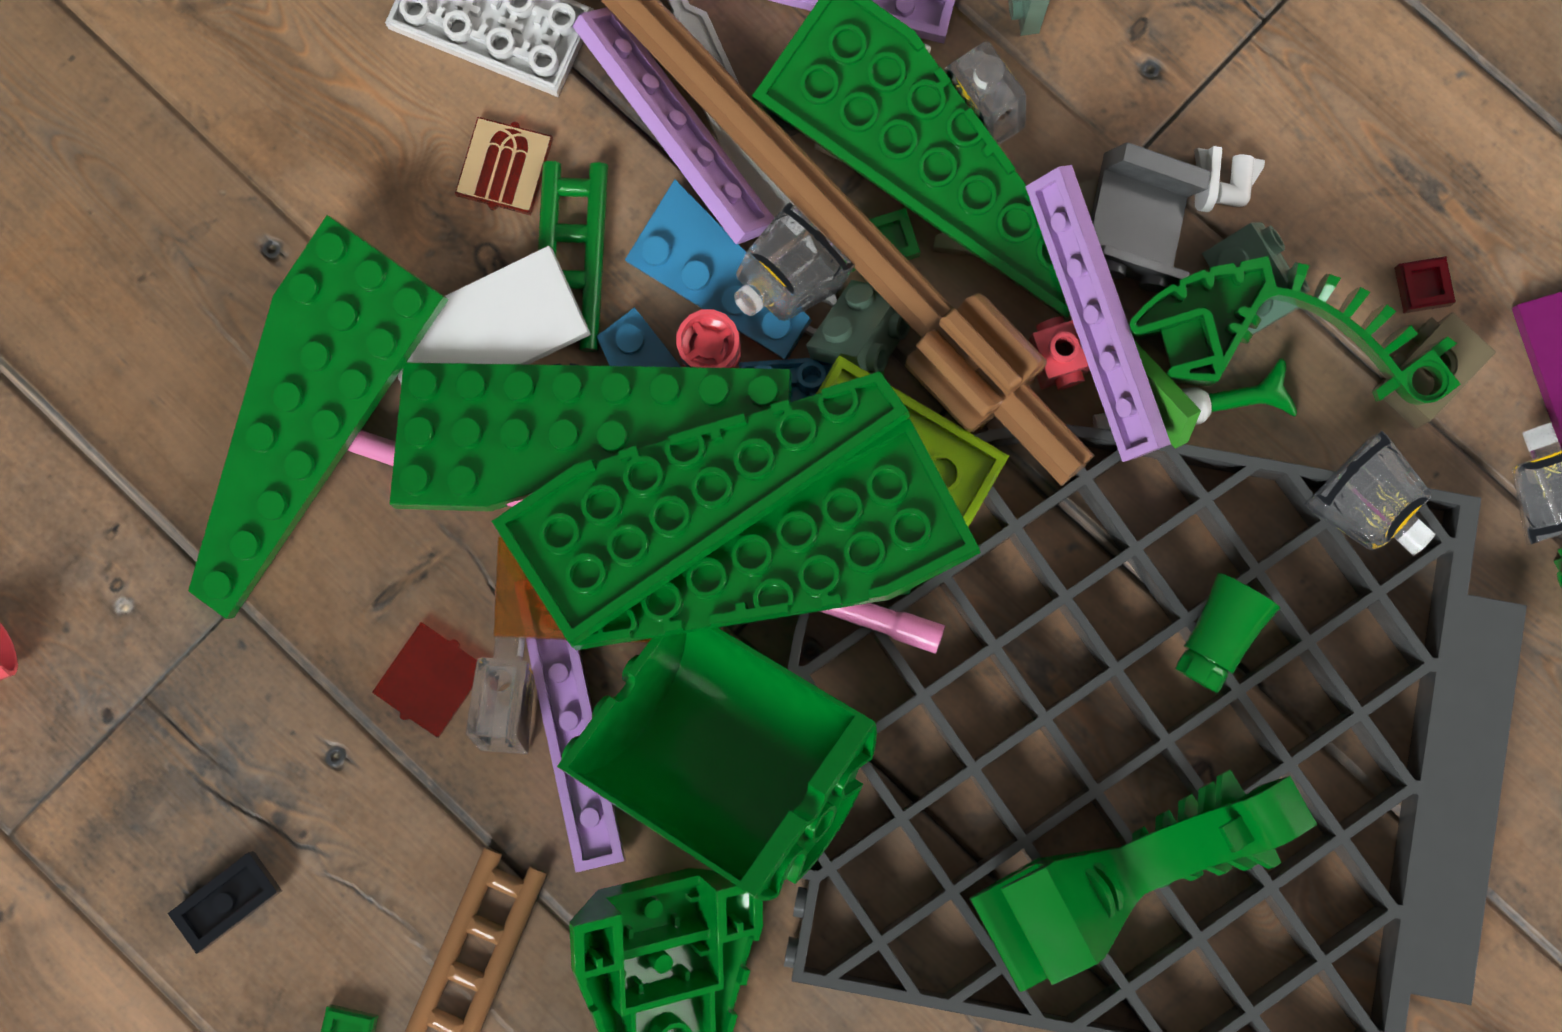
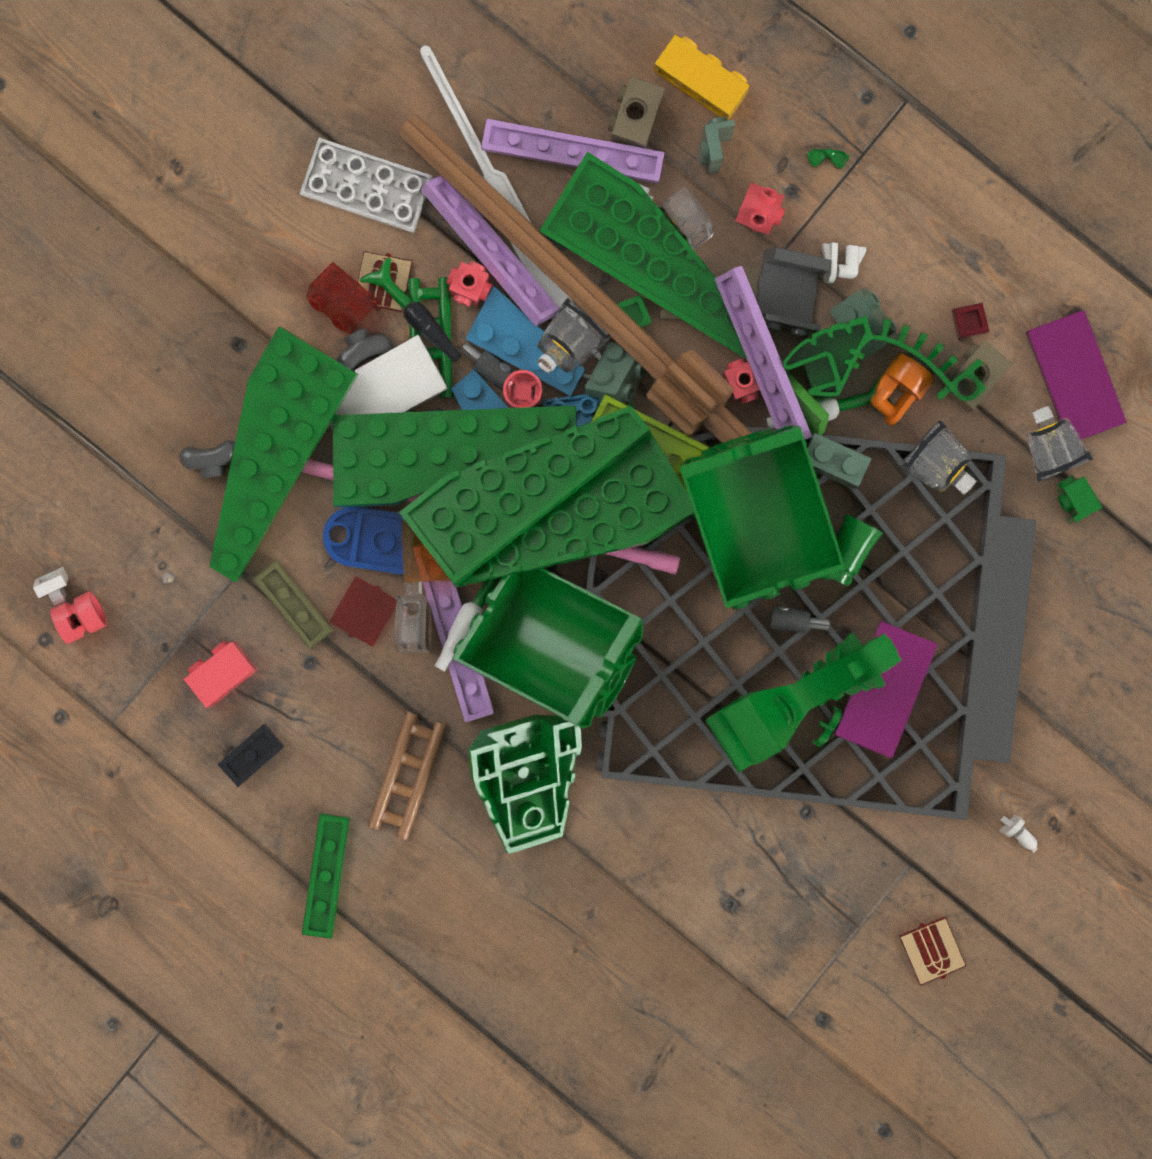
camera: 10 degrees left, 5 degrees up
(187, 764) = (220, 673): none -> coral brick
(203, 422) = (210, 460): none -> dark grey piece
(317, 661) = (293, 604): none -> olive tile
(434, 184) = (340, 298): none -> clear red bracket
(449, 564) = (371, 539): none -> blue tile
(462, 262) = (363, 347): none -> dark grey piece
(547, 212) = (414, 312): none -> black piece
(582, 706) = (462, 622): none -> white piece
(642, 188) = (469, 294): none -> coral brick
(656, 303) = (488, 366): none -> dark grey piece
(1088, 564) = (762, 515): none -> green cylinder
(1103, 88) = (761, 209): none -> coral brick
(1127, 742) = (795, 620): none -> dark grey piece
(1173, 925) = (829, 728): none -> green piece
(1206, 487) = (837, 461): none -> sand green brick
(1224, 22) = (837, 157): none -> green piece
(1261, 911) = (880, 715): none -> magenta tile
(1325, 363) = (910, 378): none -> orange piece

